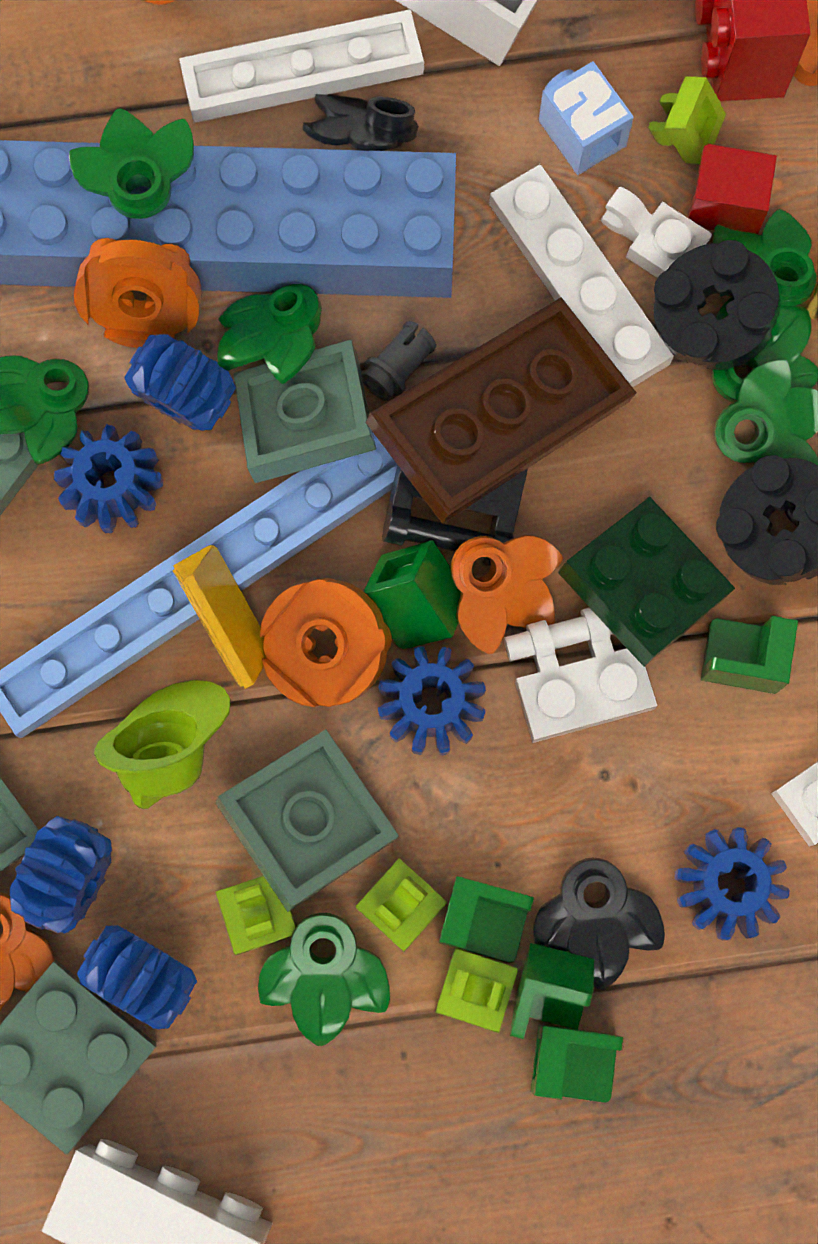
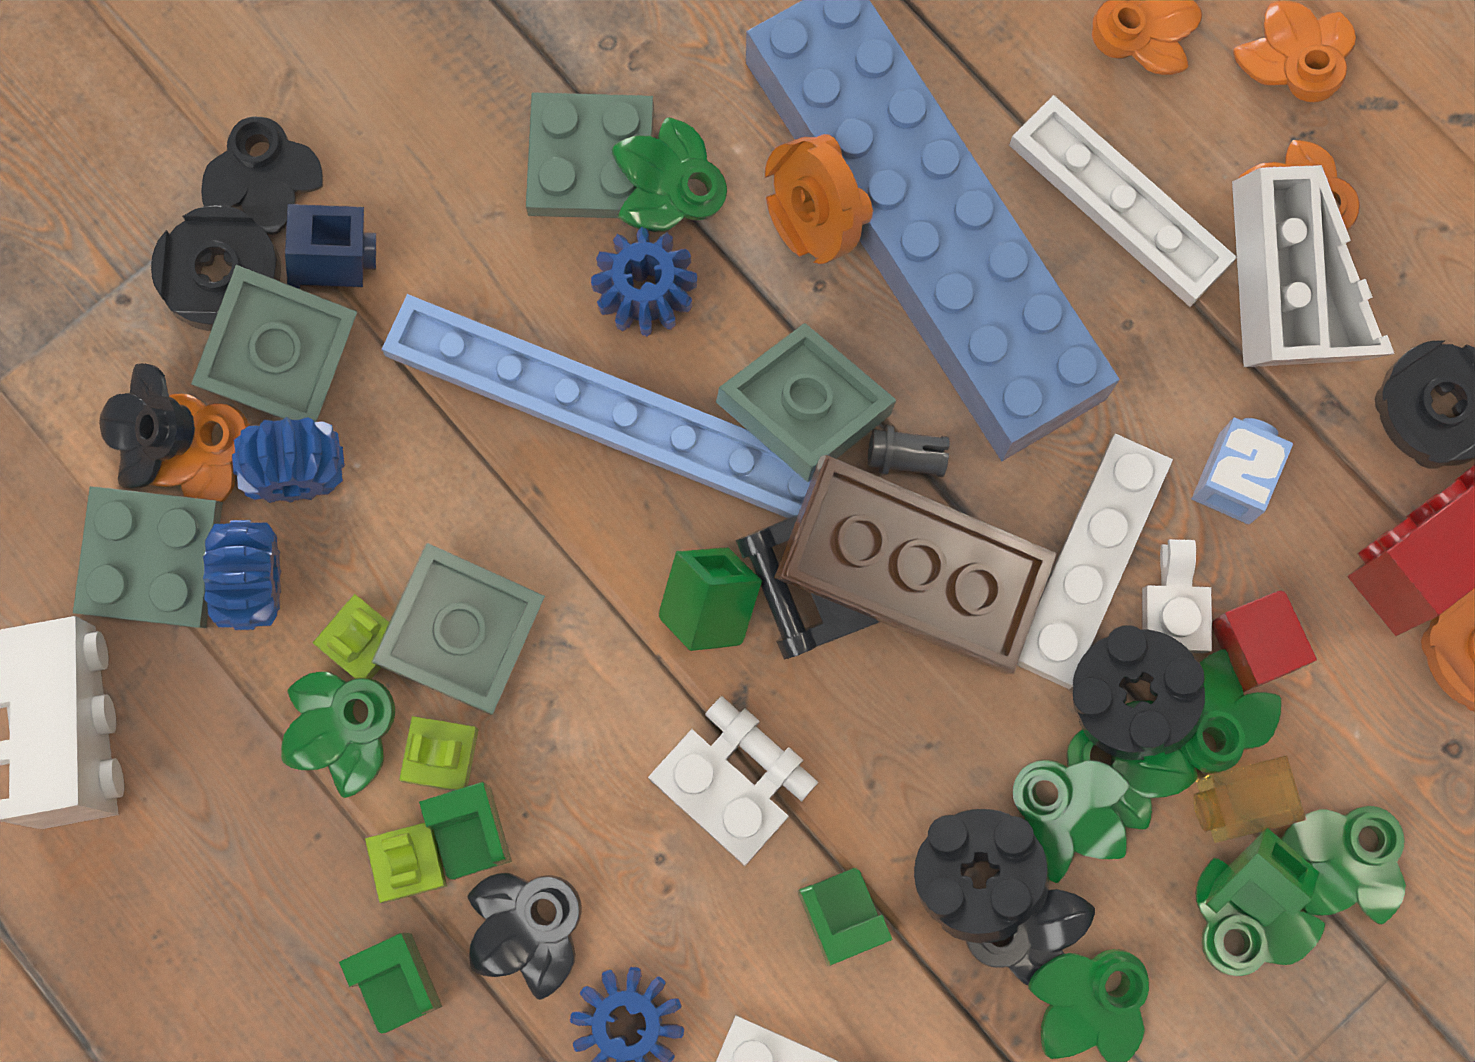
camera: 55 degrees right, 0 degrees up
(132, 159) = (923, 116): green plate -> none
(164, 739) = (448, 468): lime piece -> none
(180, 382) = (761, 284): blue gear -> none
(223, 613) = (585, 449): yellow slope -> none
(273, 329) = (863, 329): green plate -> none
(288, 643) = (641, 571): orange plate -> none
(369, 125) = (1102, 284): black plate -> none
(410, 692) = (626, 646): blue gear -> none
(509, 592) = (761, 673): orange plate -> none
(552, 988) = (442, 922): green panel -> none
(646, 580) = (849, 787): dark green plate -> none
(692, 119) = (1307, 566): lime tile -> none

